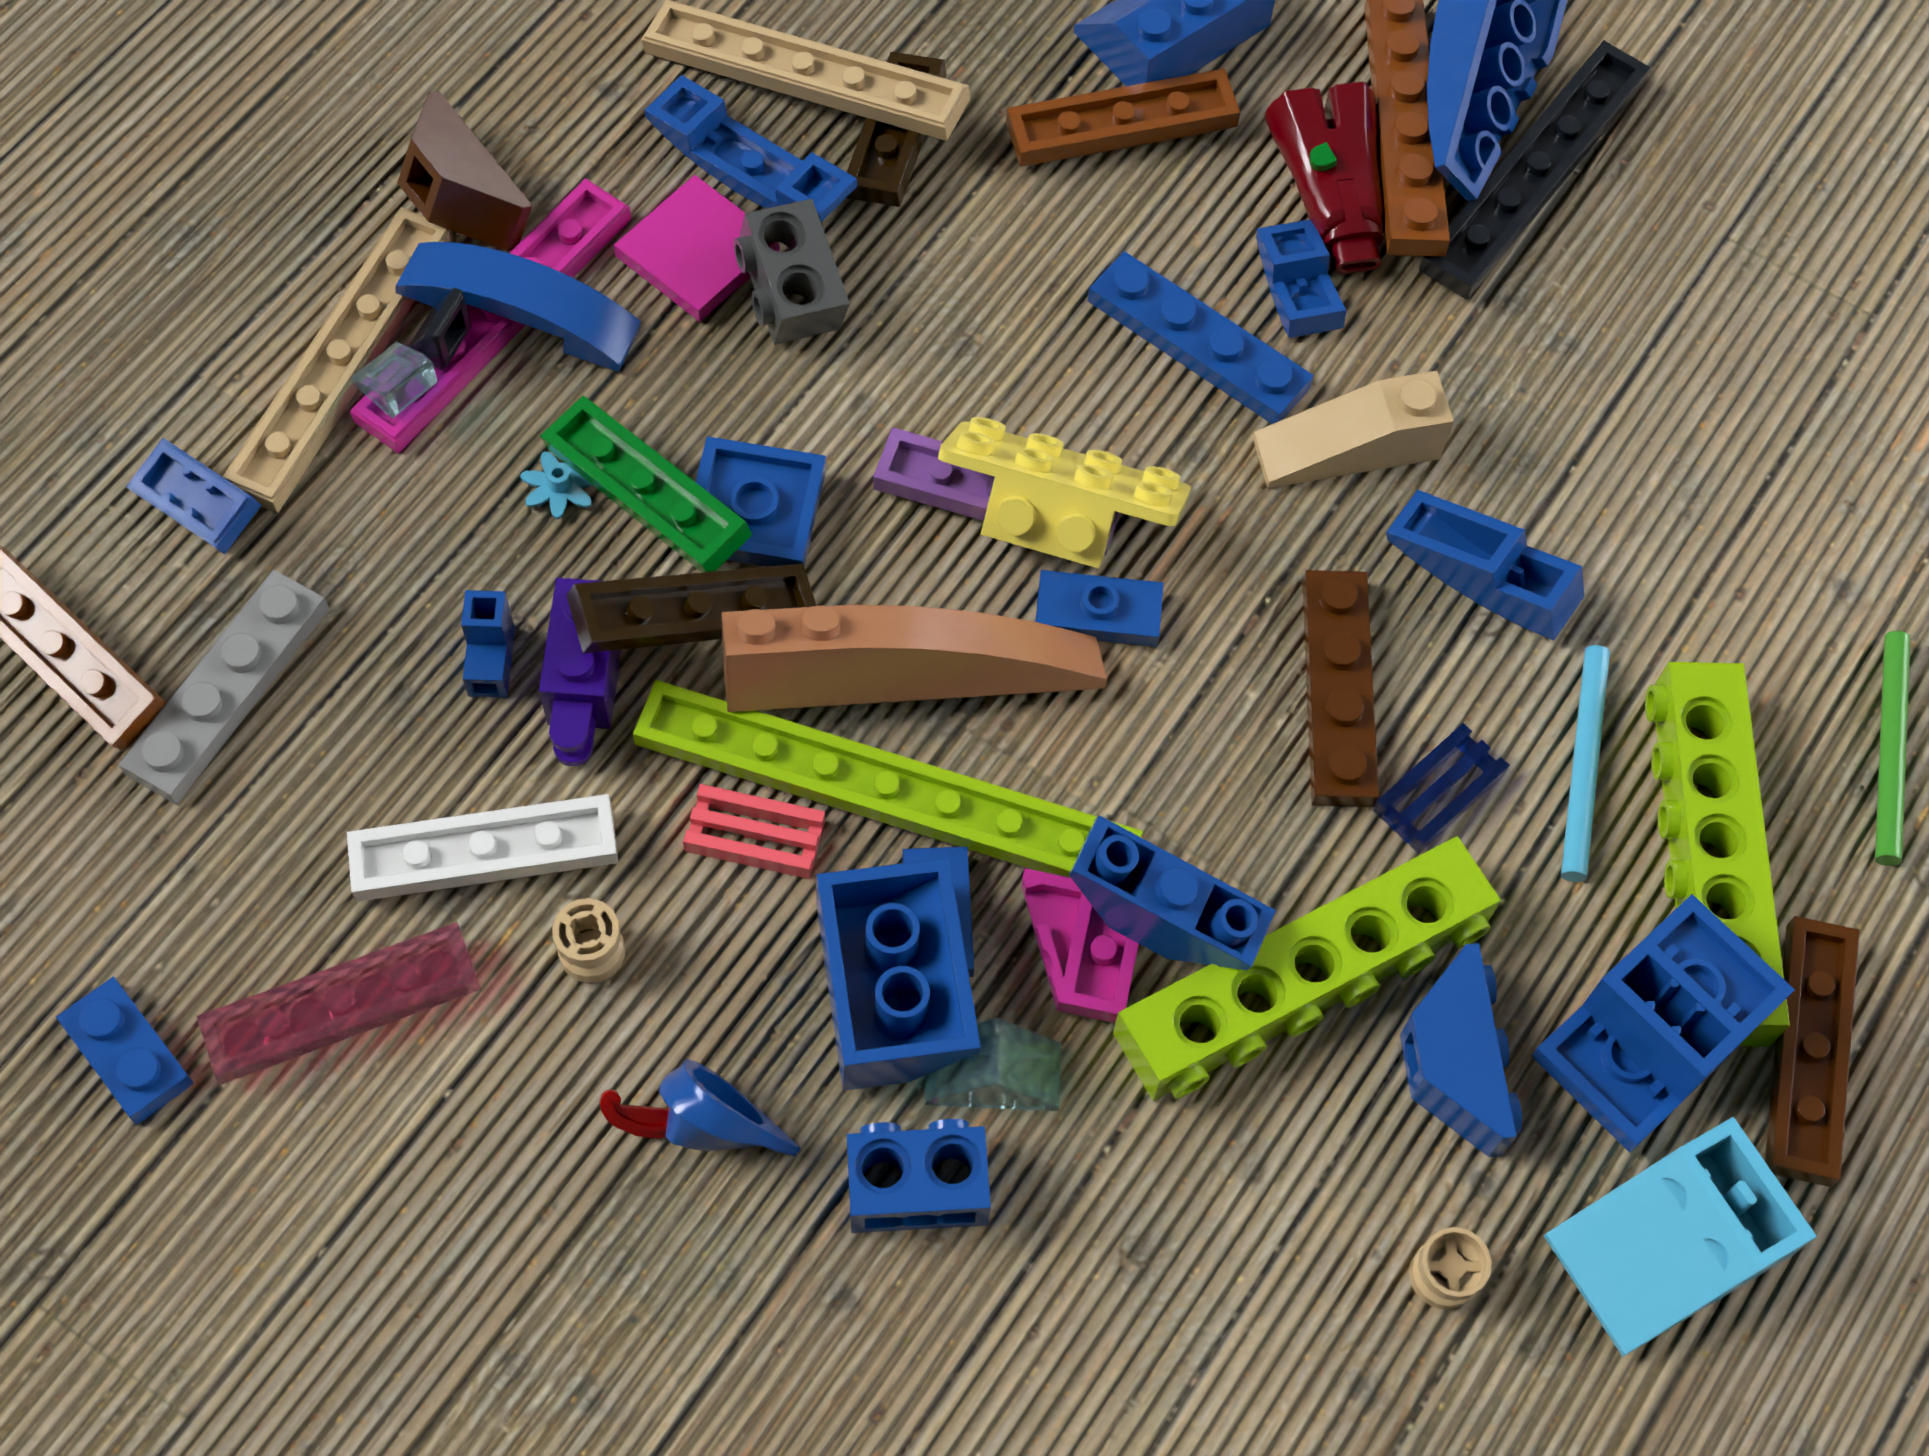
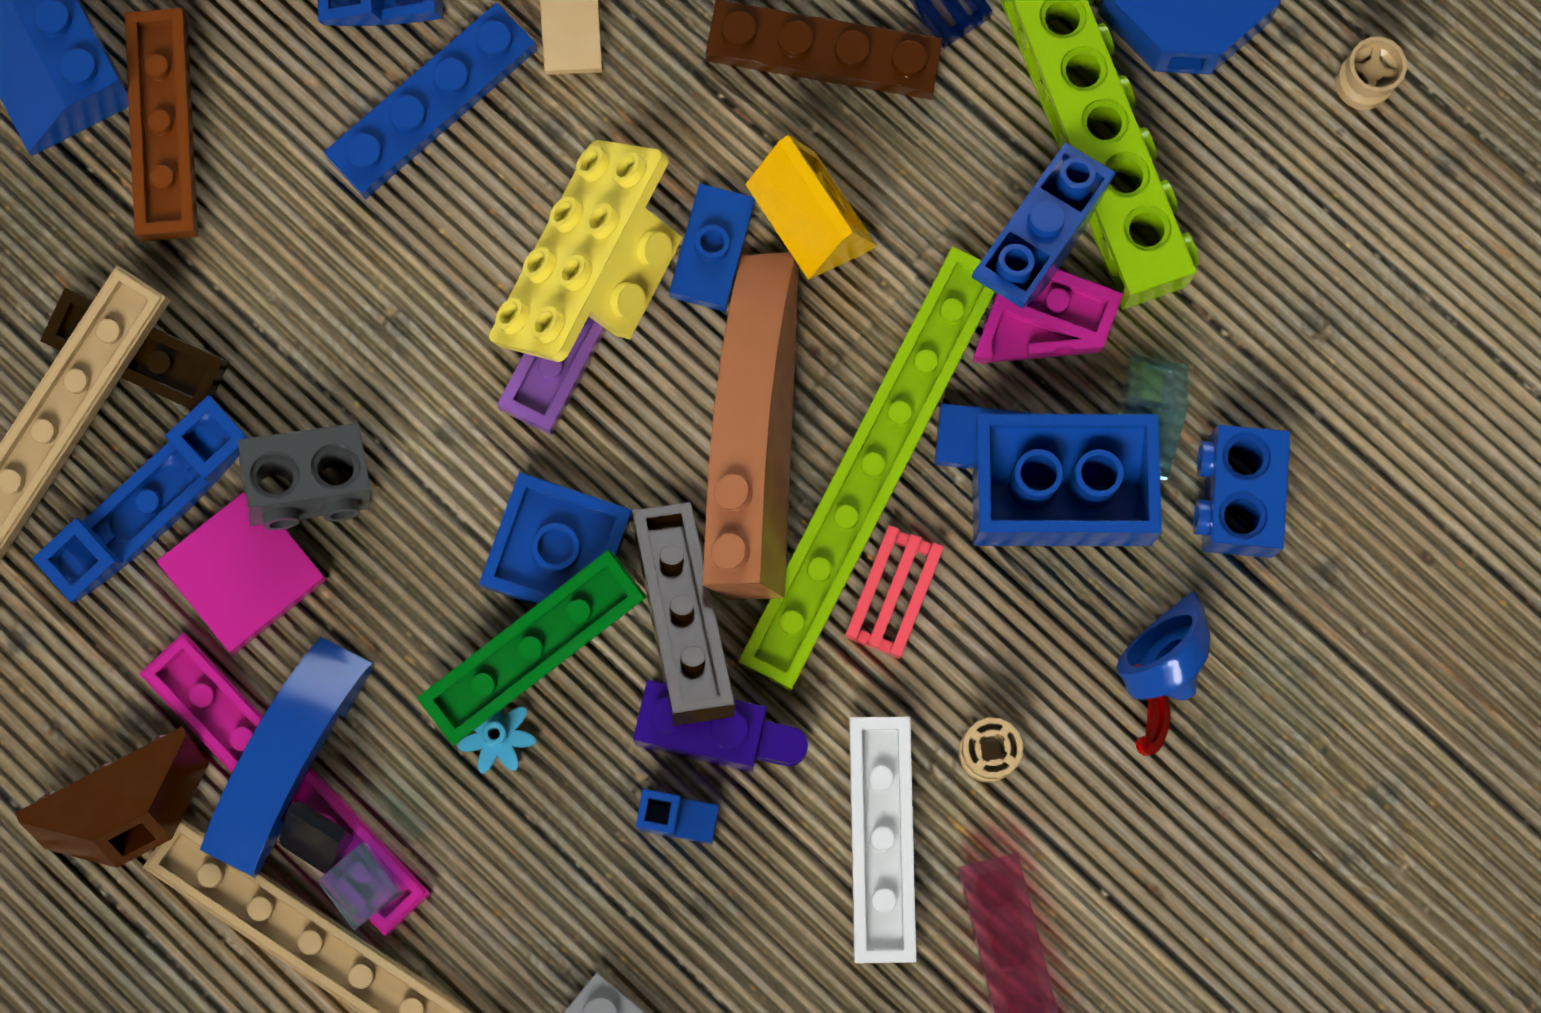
camera: 80 degrees left, 15 degrees up
(1159, 688) = (808, 209): none -> yellow slope

